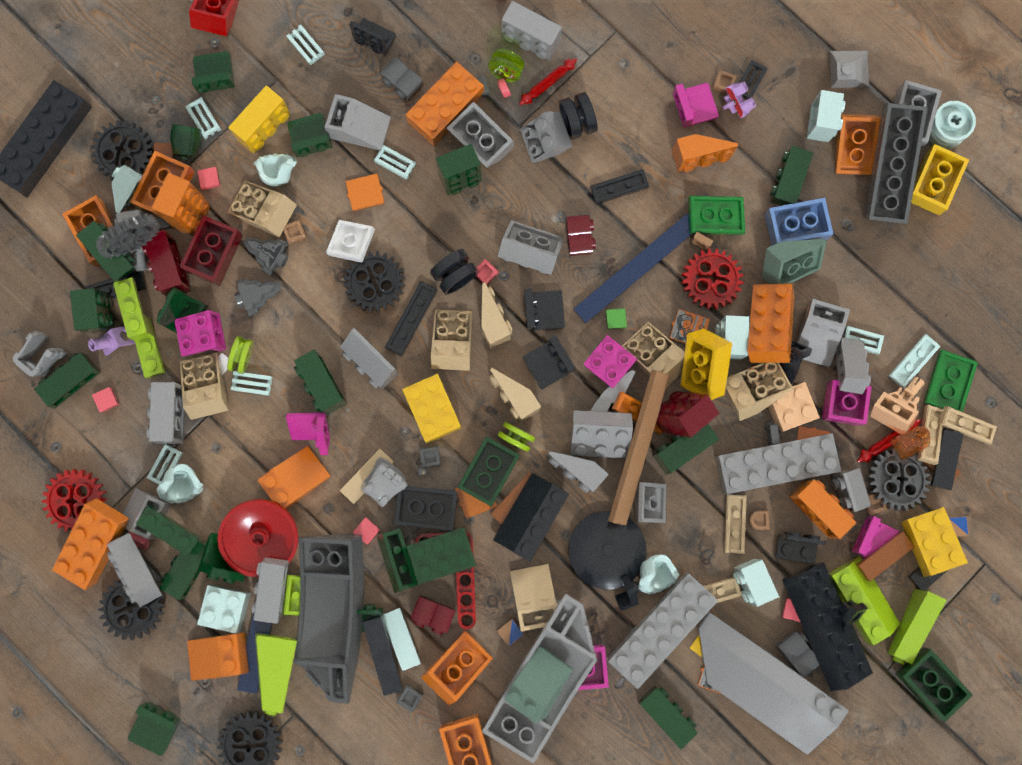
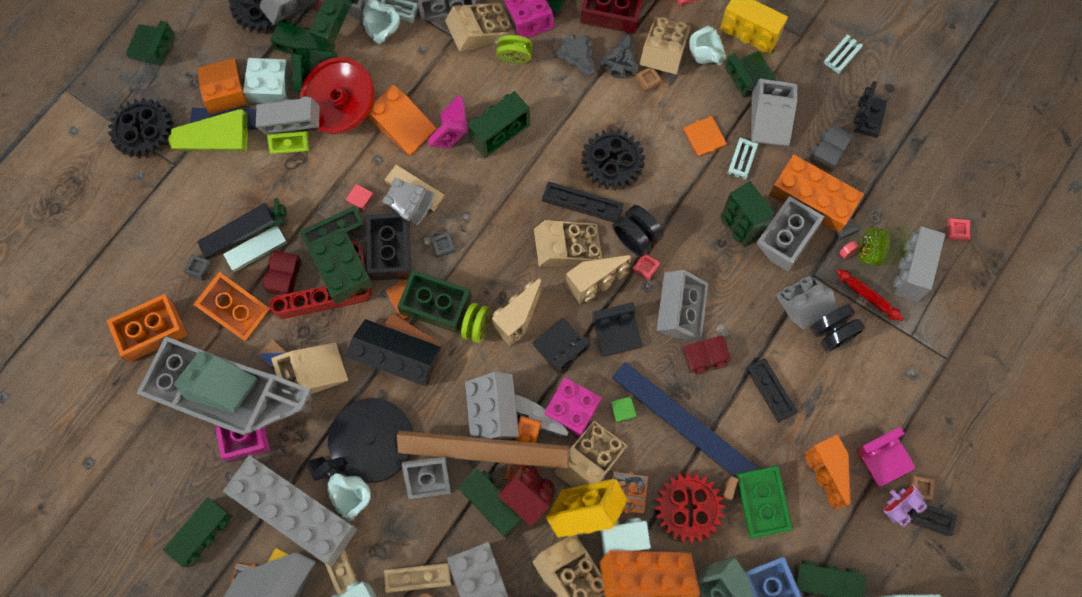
camera: 85 degrees right, 10 degrees down
(235, 380) = (489, 54): light aqua tile -> none
(328, 611) = (289, 173): dark grey slope -> none
(350, 241) = (650, 129): white tile -> none
(368, 360) = (531, 166): light grey slope -> none
(431, 408) = (492, 235): yellow brick -> none
(584, 471) = (447, 399): light grey slope -> none

